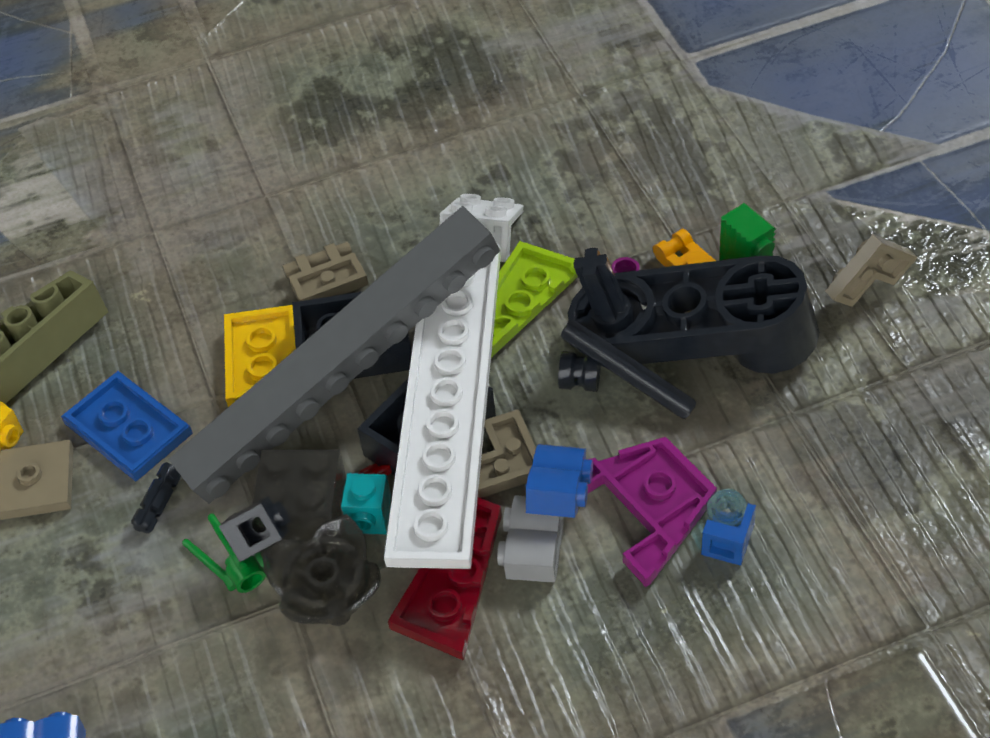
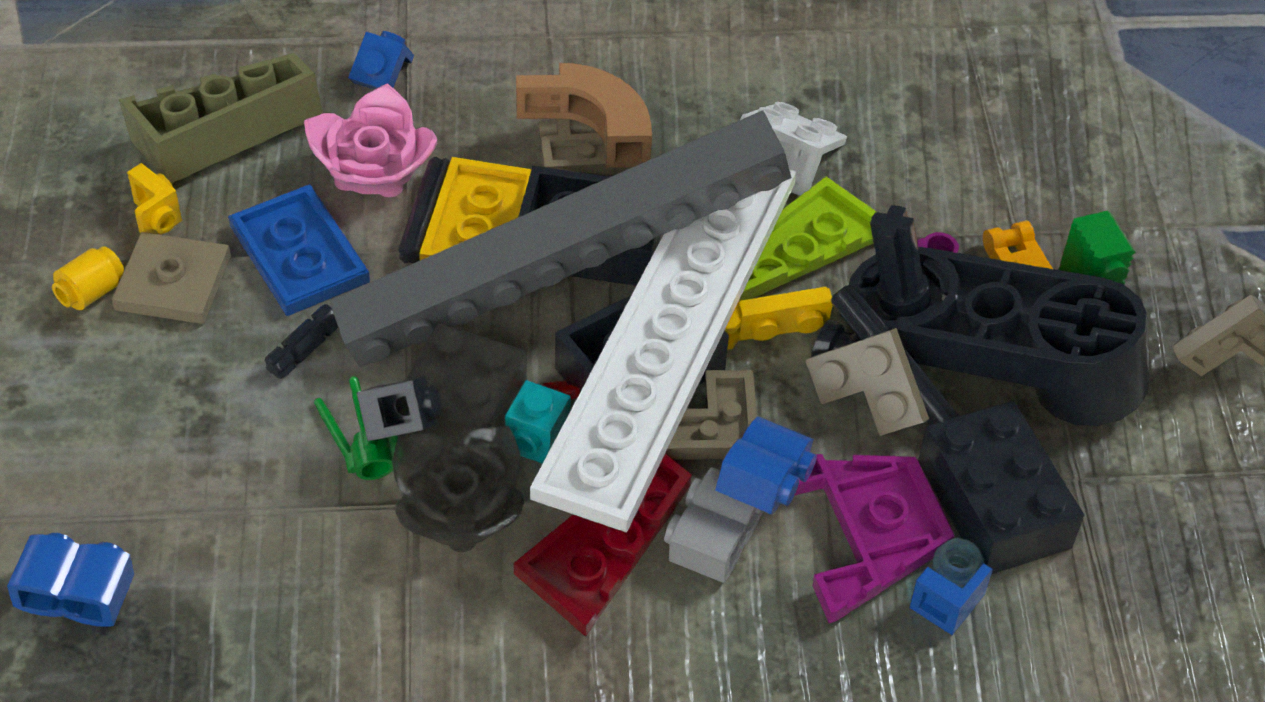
camera: 10 degrees right, 0 degrees up
(139, 256) = (379, 60): none -> blue bracket
(158, 325) = (373, 147): none -> bright pink brick
(215, 363) = (422, 210): none -> black axle
(324, 236) = (593, 99): none -> medium nougat arch
(518, 361) = (779, 314): none -> yellow hinge
(612, 377) = (881, 371): none -> dark tan plate
(737, 439) = (1000, 486): none -> black brick

